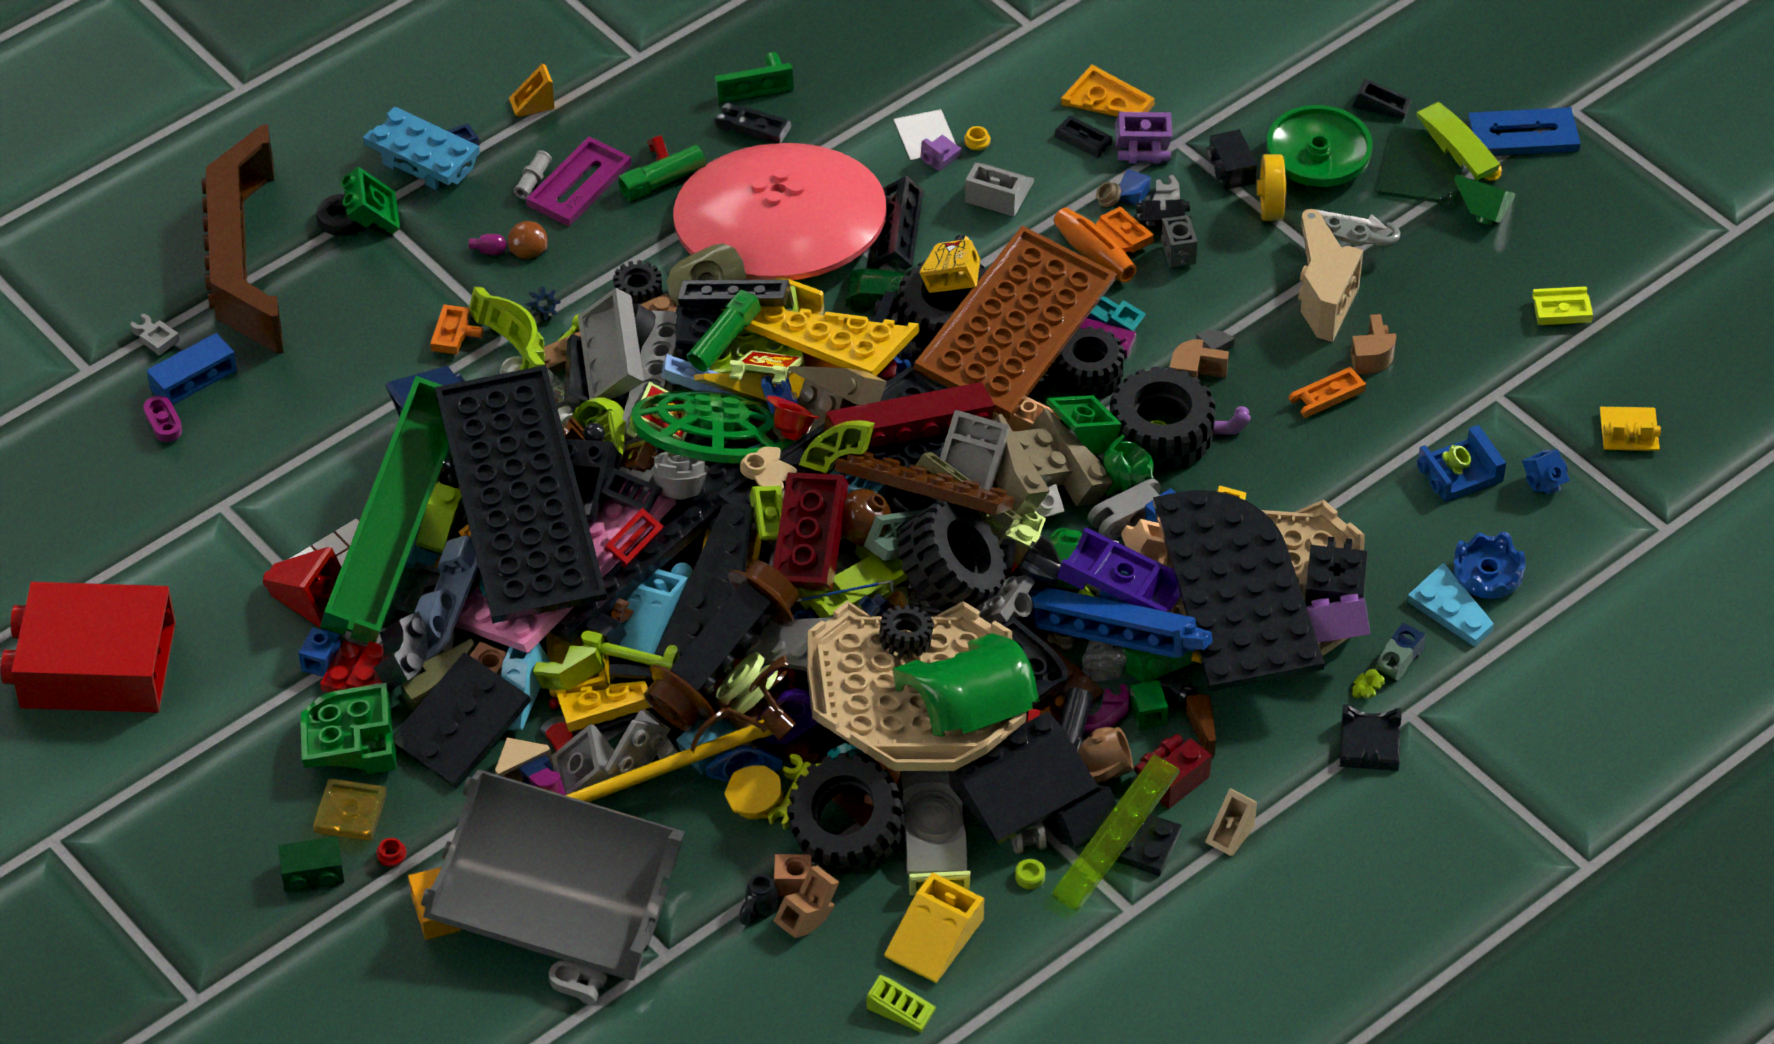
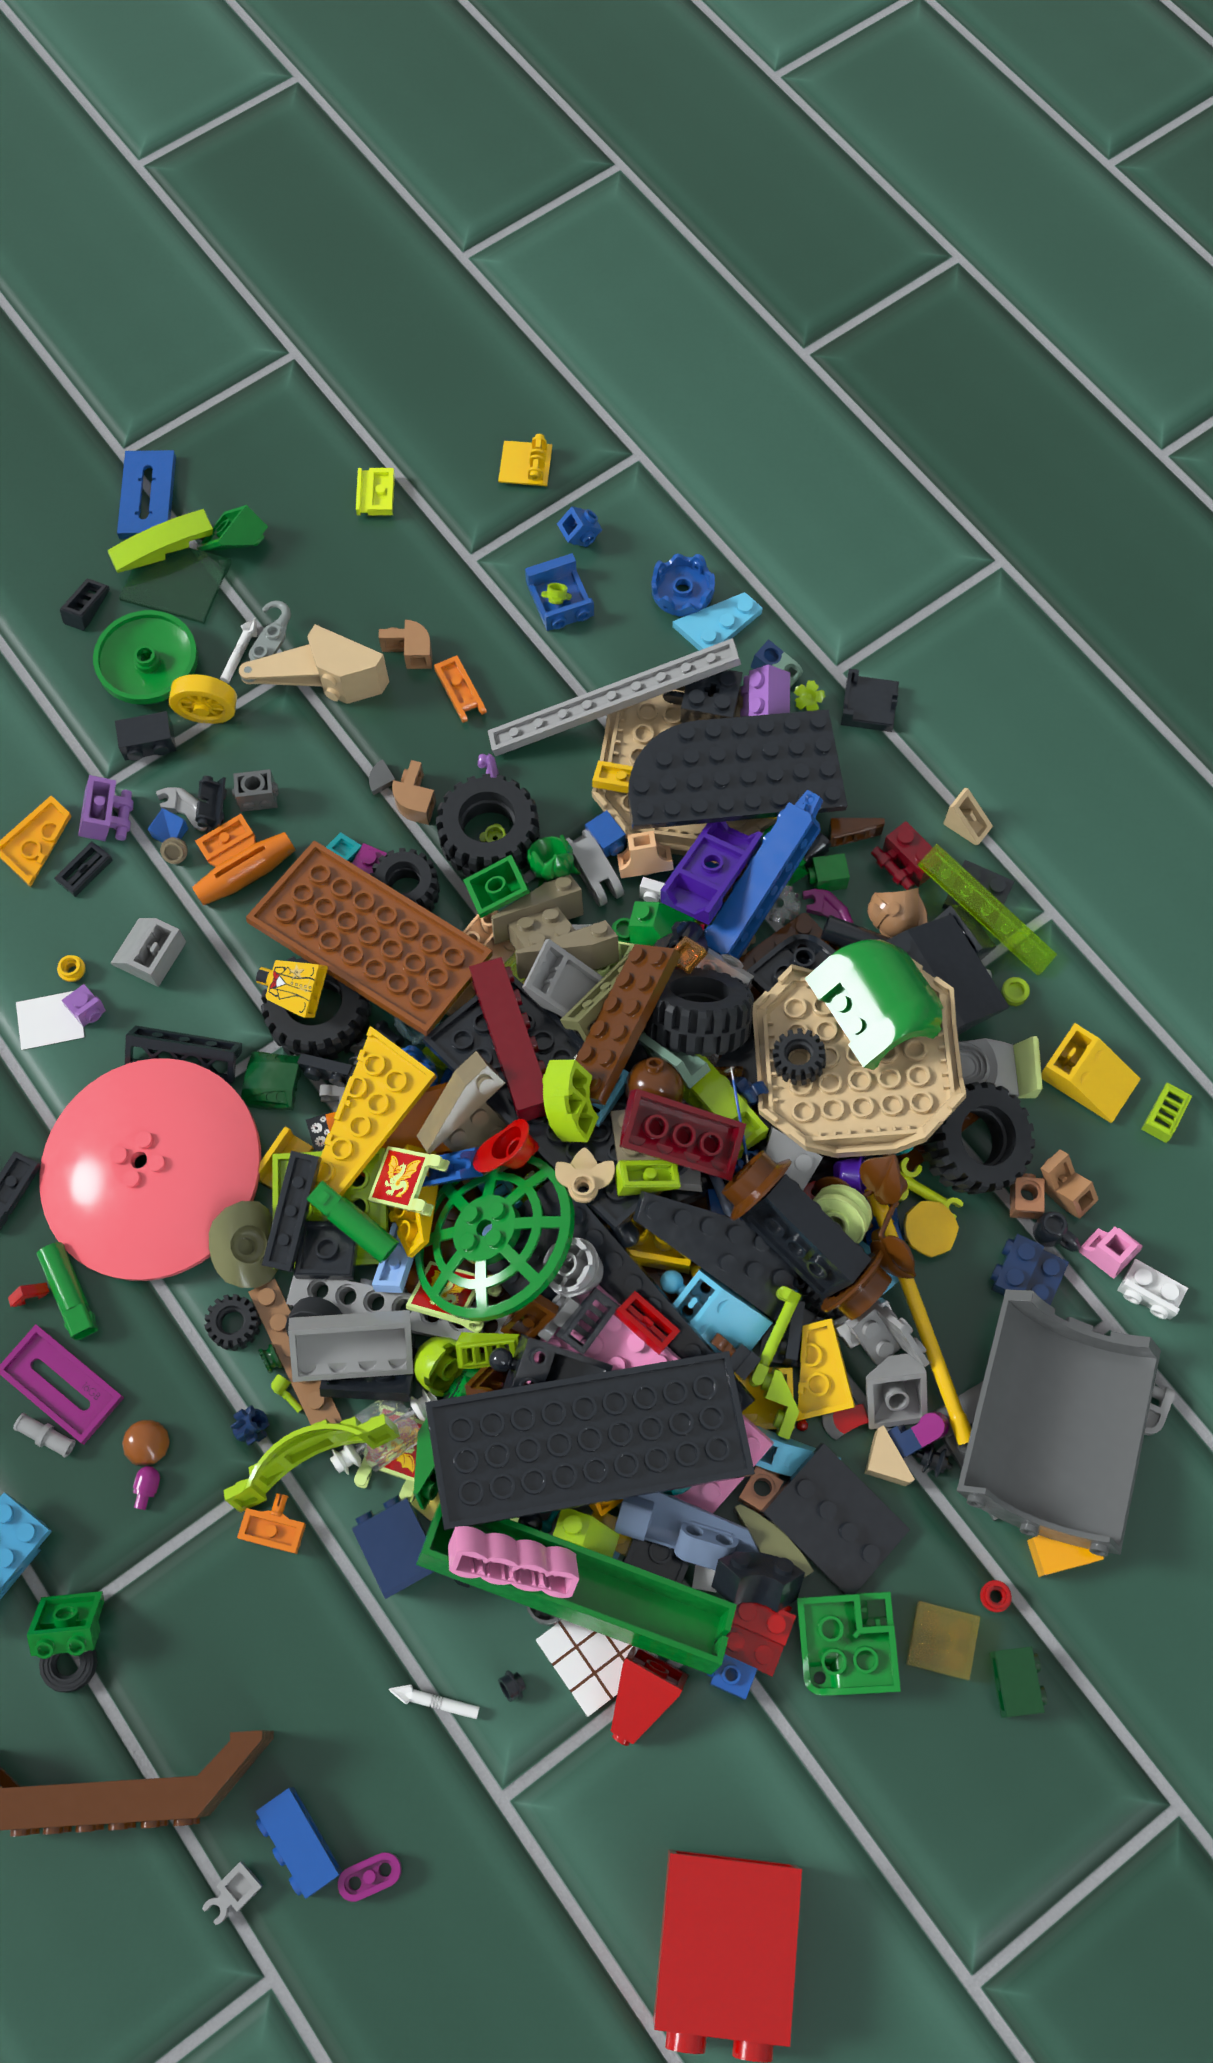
camera: 85 degrees left, 20 degrees up
(310, 433) = (408, 1694): none -> white piece
(315, 500) = (512, 1685): none -> black plate
(408, 446) = (507, 1561): none -> bright pink brick
(699, 985) = (1152, 1289): none -> white bracket
(713, 879) = (1028, 1269): none -> dark blue plate
(739, 946) = (1110, 1250): none -> bright pink brick
(1014, 550) = (691, 954): none -> clear orange plate
(1320, 496) = (614, 697): none -> light grey plate

